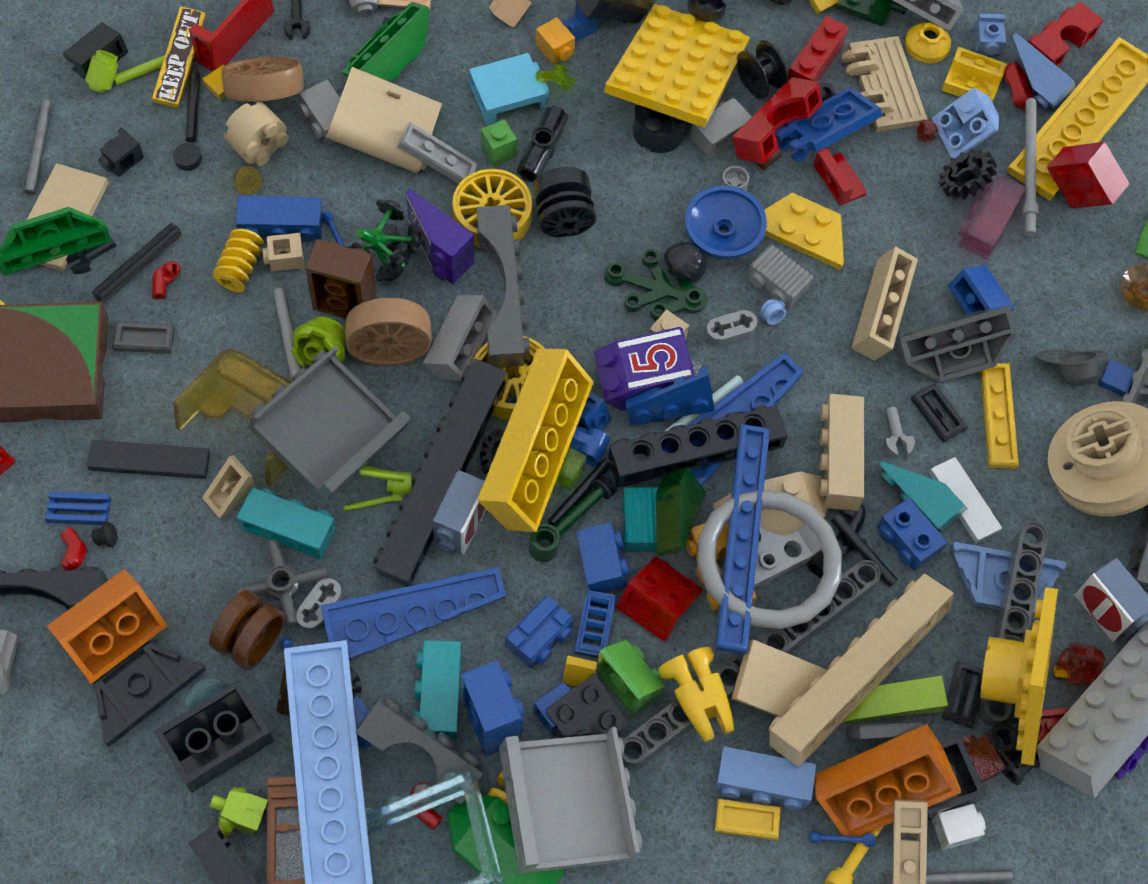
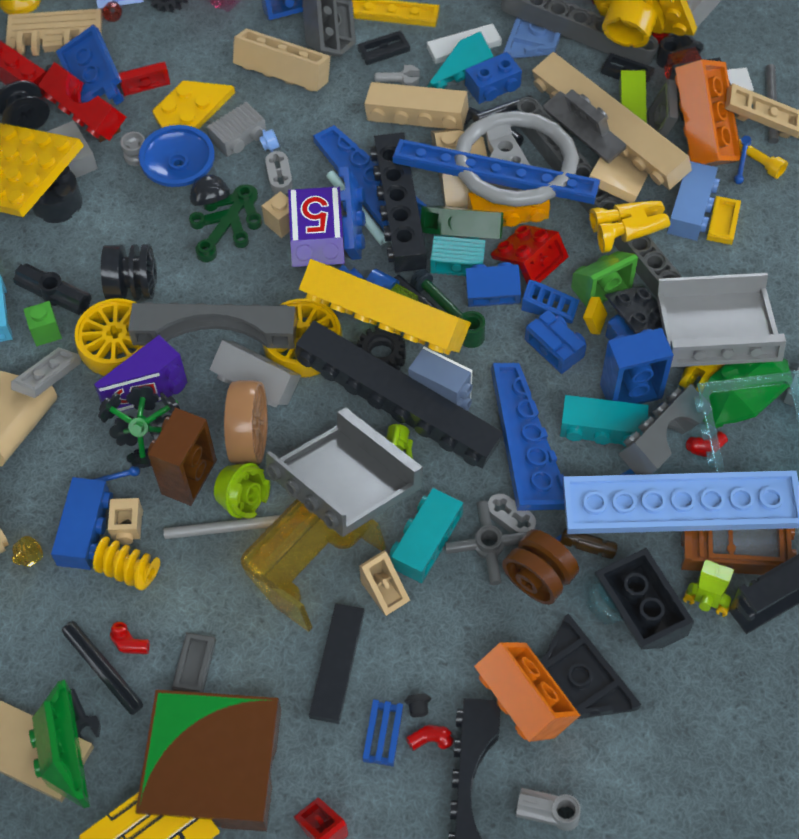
camera: 75 degrees left, 5 degrees down
(839, 636) = (585, 123): none -> flat silver bracket

